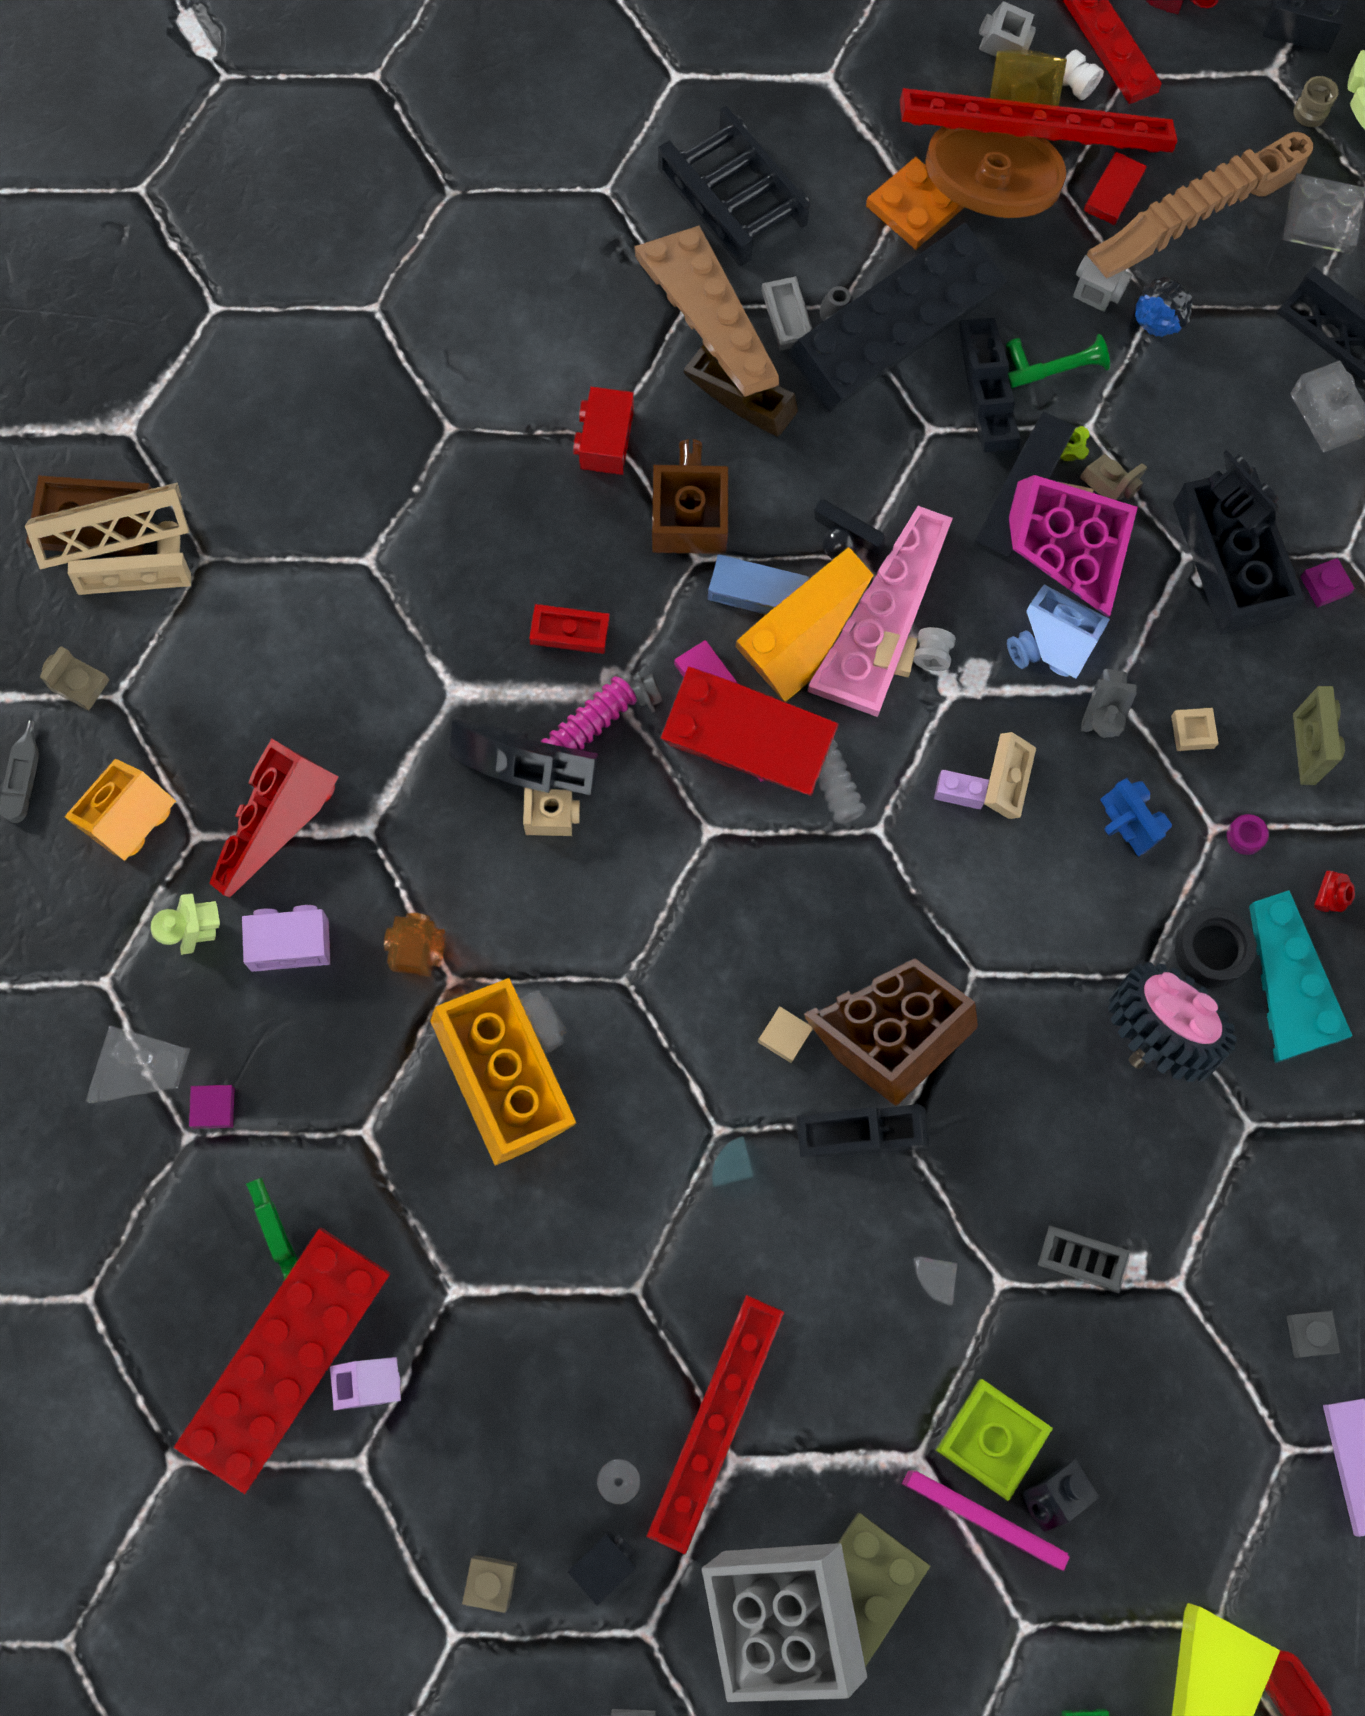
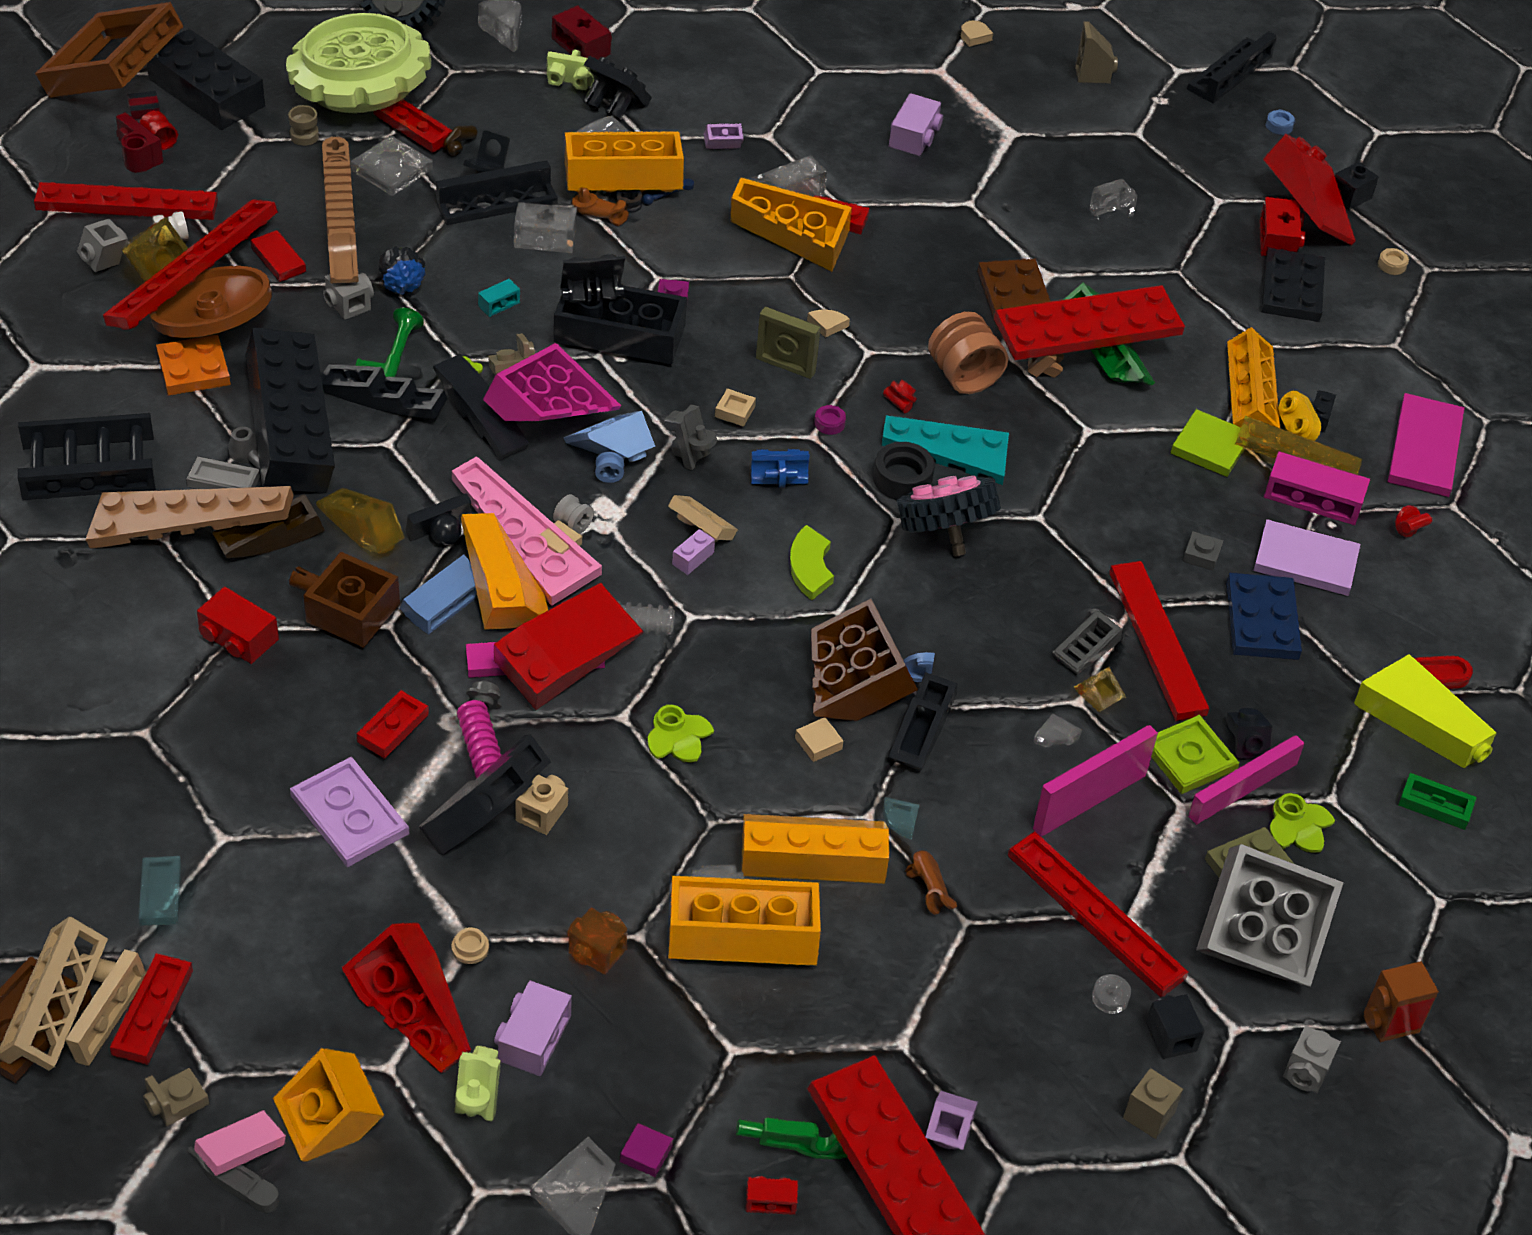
camera: 65 degrees left, 25 degrees down
(47, 758) = (239, 1142): none -> bright pink tile
(150, 609) = (151, 1009): none -> red plate
(213, 1246) = (771, 1195): none -> red piece
(281, 543) = (160, 891): none -> clear light blue tile
(353, 835) = (470, 946): none -> tan plate
(452, 648) = (349, 811): none -> lavender tile
(643, 1093) = (815, 848): none -> light orange slope
(669, 1224) = (929, 871): none -> dark orange piece
(706, 898) = (679, 738): none -> lime plate
(804, 461) = (364, 519): none -> clear yellow slope
(873, 1351) = (1094, 780): none -> dark pink tile
(936, 1092) = (919, 664): none -> medium blue tile
(957, 1610) = (1299, 823): none -> lime plate
(1020, 909) = (808, 563): none -> lime tile
(1028, 1300) = (1100, 689): none -> clear yellow slope
(1141, 1337) = (1159, 641): none -> red tile
(1198, 418) = (499, 297): none -> teal piece
(1254, 1445) = (1263, 616): none -> dark blue plate

